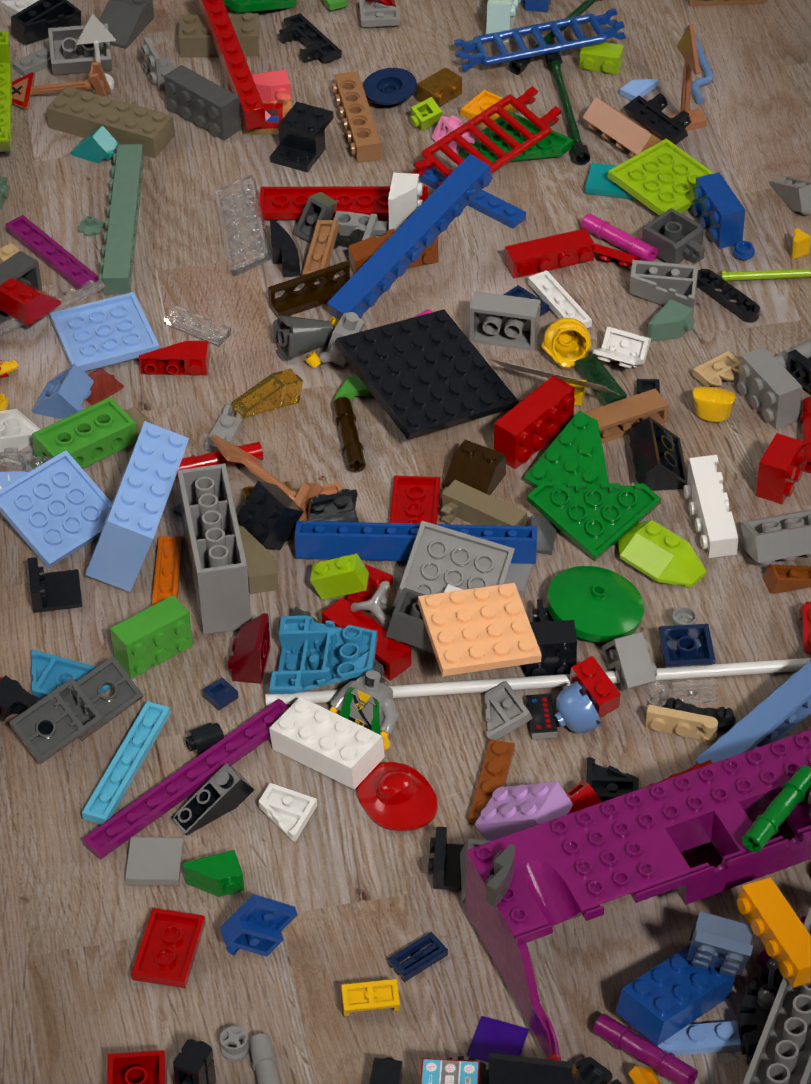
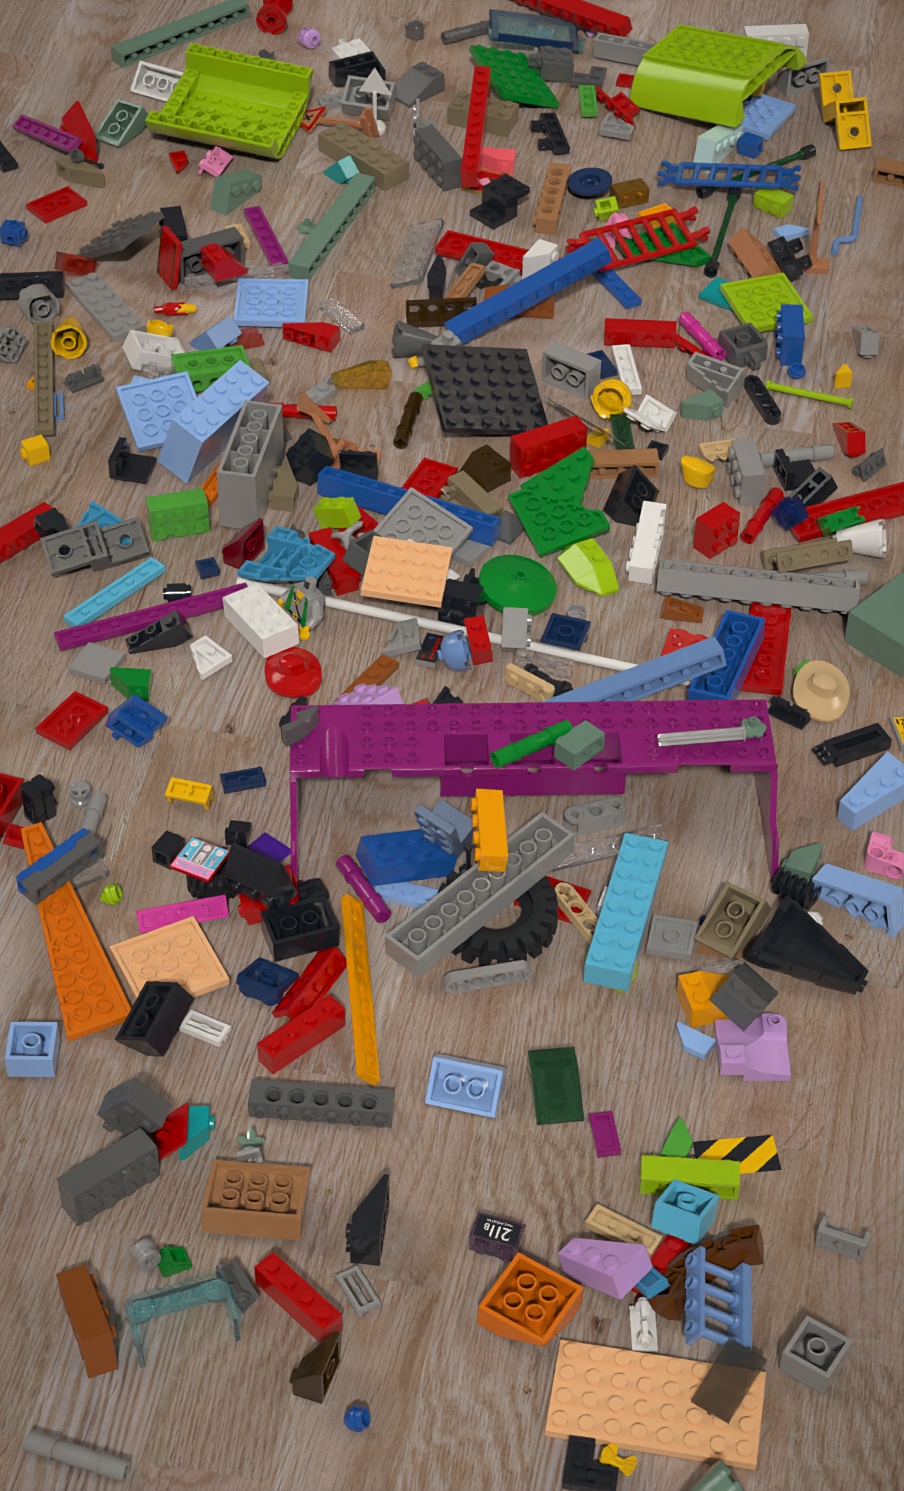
camera: 20 degrees right, 0 degrees up
(453, 1029) = (238, 833): none -> black bracket

